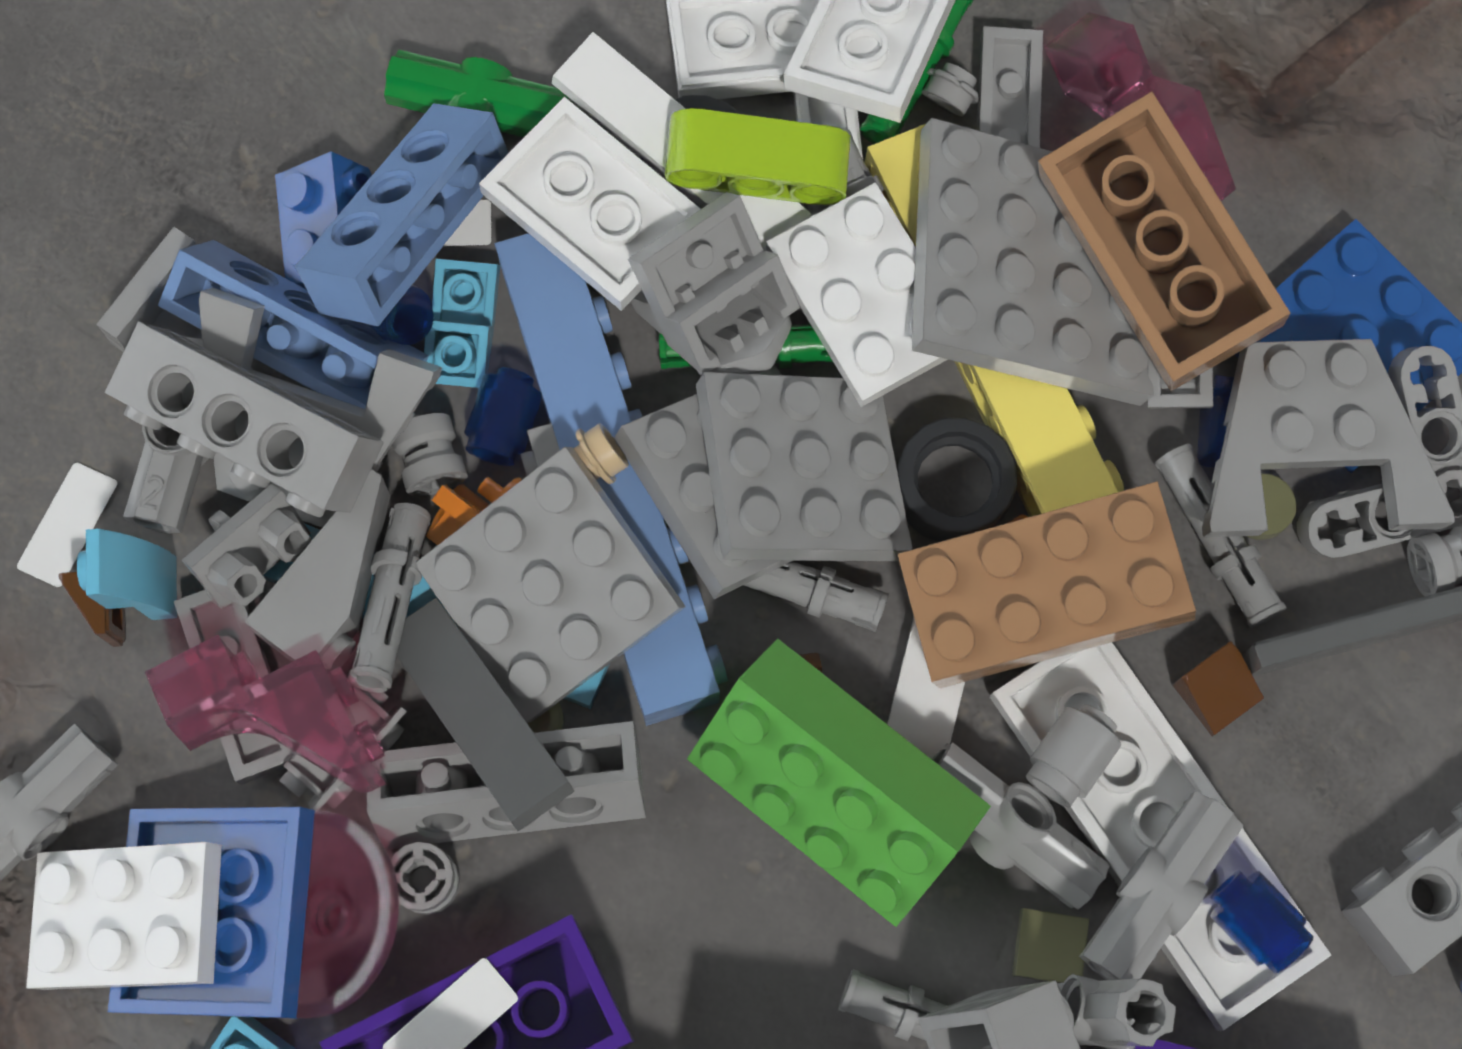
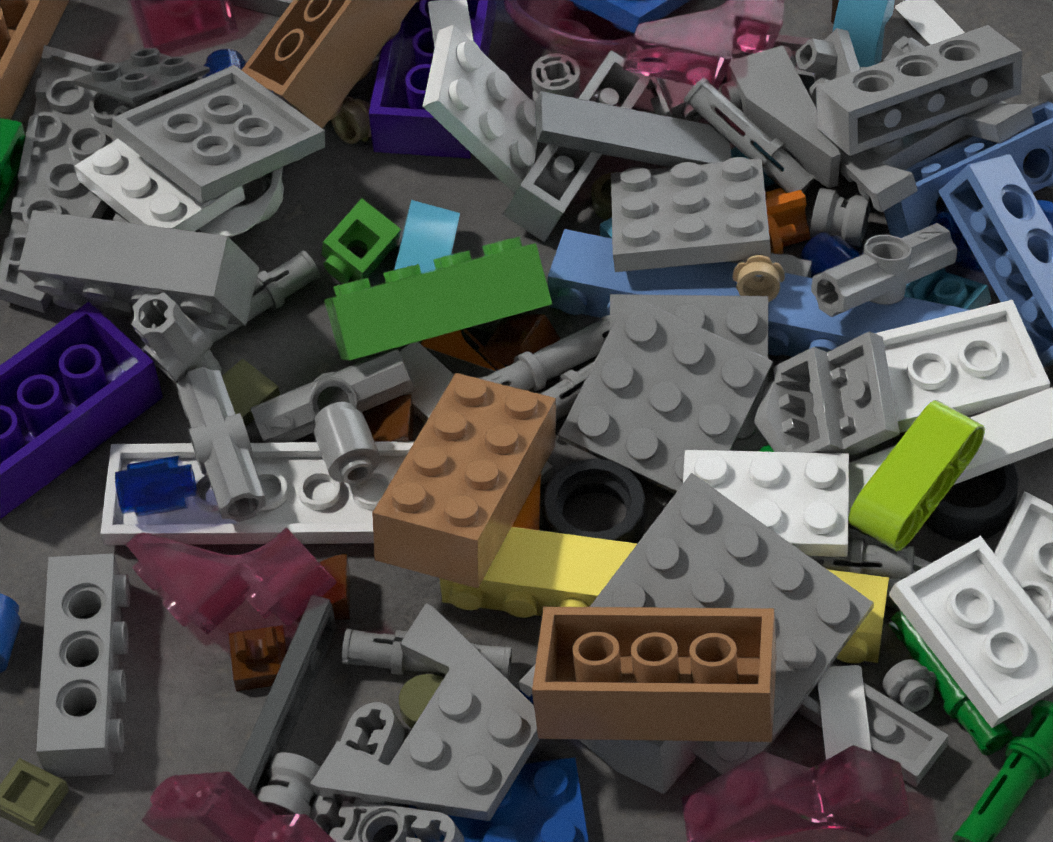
camera: 130 degrees right, 20 degrees down
(540, 910) = (481, 107): none -> white plate
(544, 335) = (884, 269): none -> light grey piece
(740, 873) = (426, 235): none -> medium azure slope
(794, 927) = (361, 228): none -> bright green brick
(821, 639) = (533, 370): none -> light grey pin
(999, 749) = (392, 420): none -> reddish brown slope
(1035, 112) = (843, 709): none -> white sticker
(1308, 799) = (212, 585): none -> clear pink arch
(1329, 700) = (257, 656): none -> reddish brown tile

